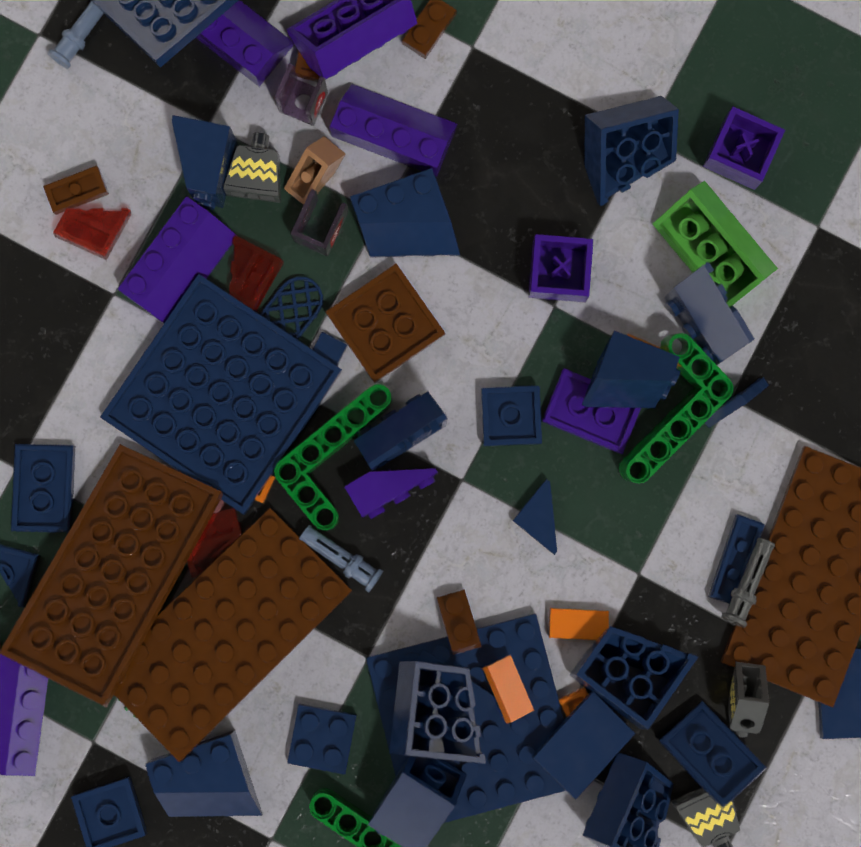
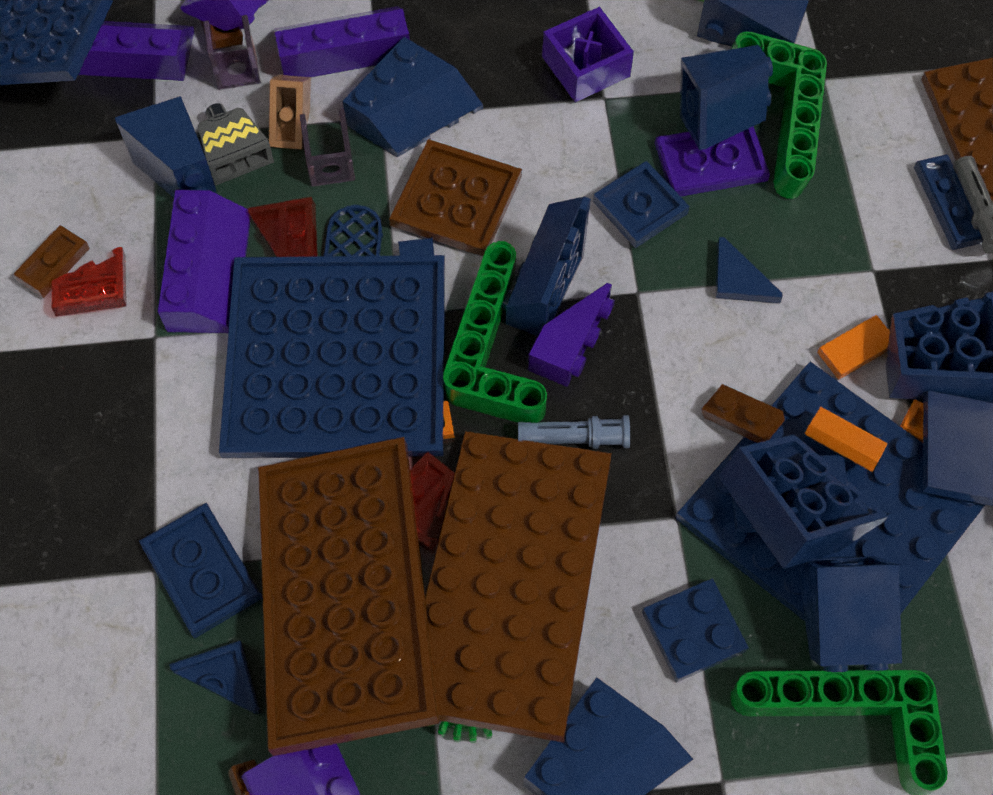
camera: 30 degrees left, 20 degrees down
(737, 401) = (833, 74): dark blue tile -> none

